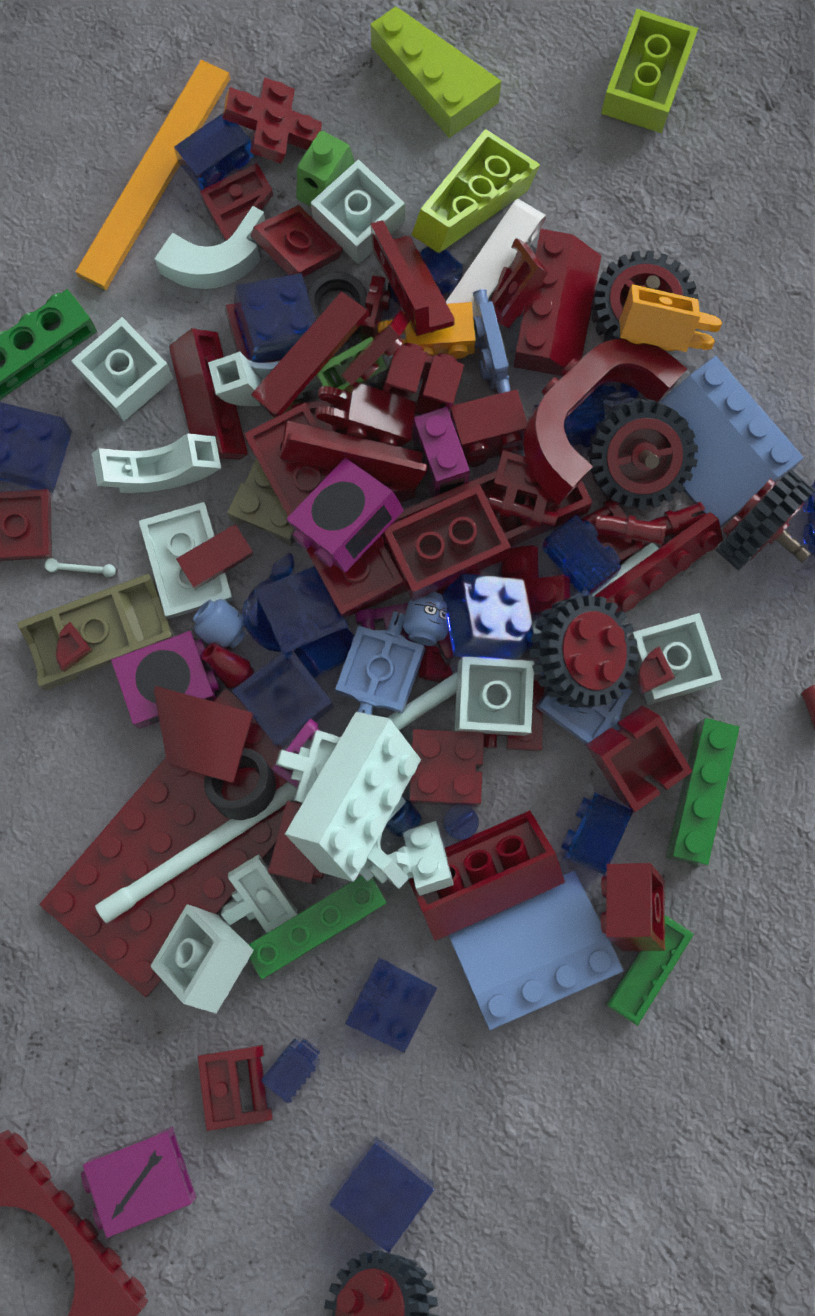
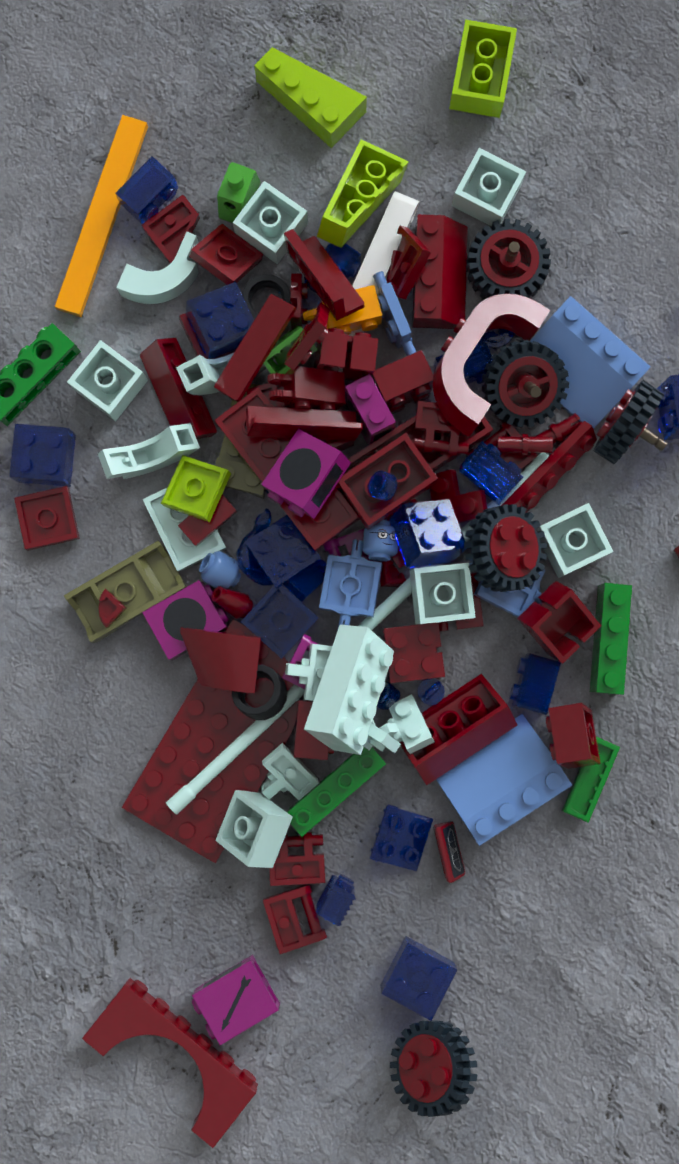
camera: 10 degrees left, 5 degrees up
(53, 566) = (81, 544): light aqua hinge -> none
(207, 516) = (196, 488): none -> lime plate
(253, 1022) = (299, 868): none -> dark red plate
(271, 119) = (188, 157): dark red plate -> none
(439, 544) = (382, 485): none -> clear blue tile
(451, 1033) = (449, 851): none -> slope
(633, 211) = (488, 188): none -> light aqua brick
(654, 671) = (561, 554): dark red tile -> none
(666, 320) = (528, 275): light orange hinge -> none

